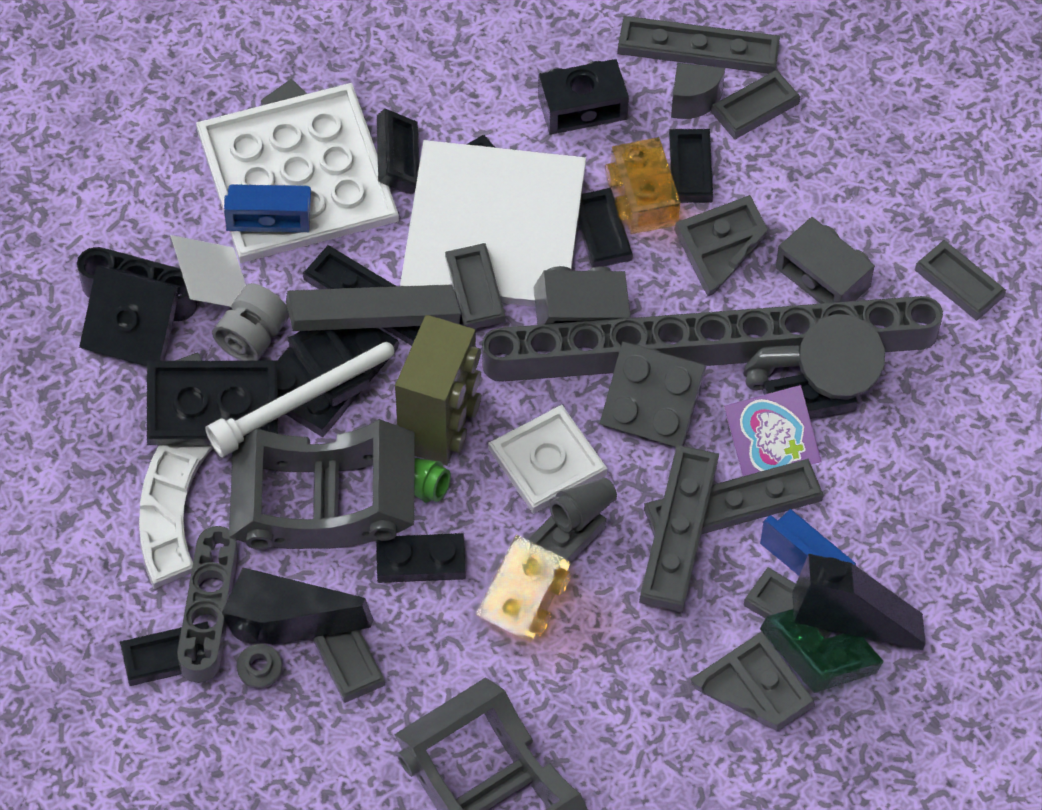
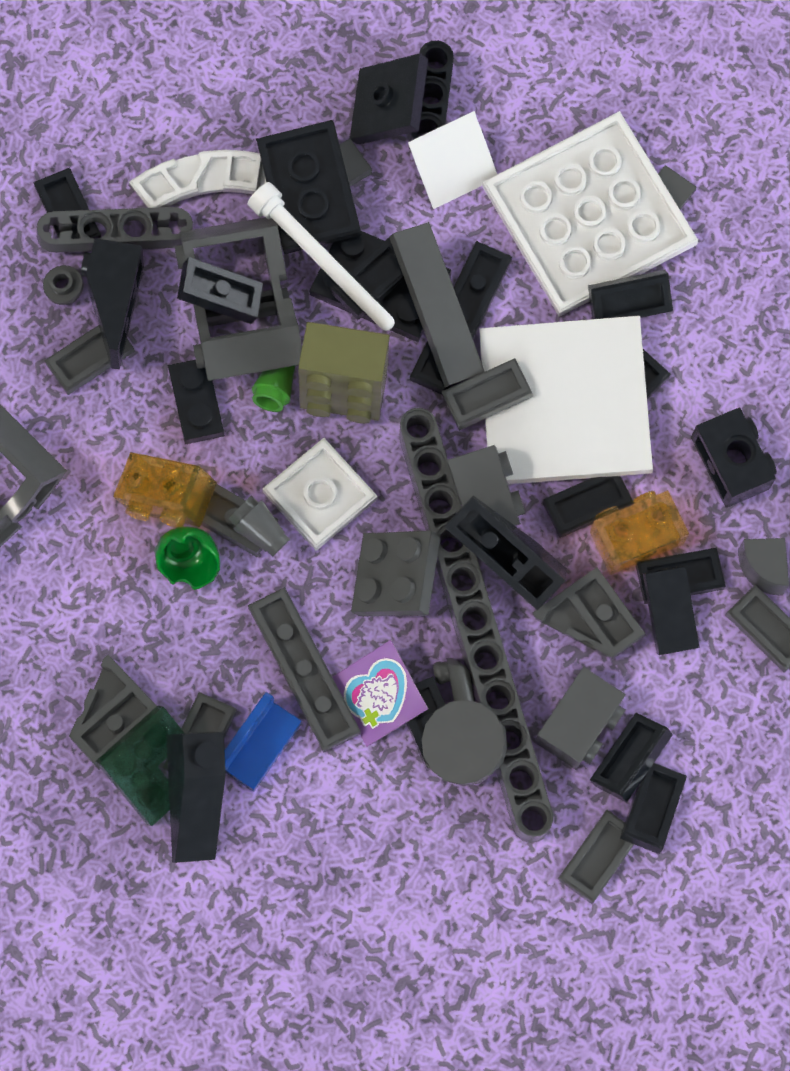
camera: 75 degrees right, 15 degrees up
(251, 323) = (418, 208): light grey wheel -> none
(267, 208) = (536, 192): blue panel -> none
(315, 496) = (220, 290): none -> black plate
(600, 580) = (187, 557): none -> green hair
(657, 281) = (508, 552): none -> black slope
(679, 528) = (259, 620): dark grey tile -> none
(727, 173) = (671, 610): none -> black tile
(868, 232) = (631, 757): none -> black tile
(919, 224) = (653, 808): none -> black tile

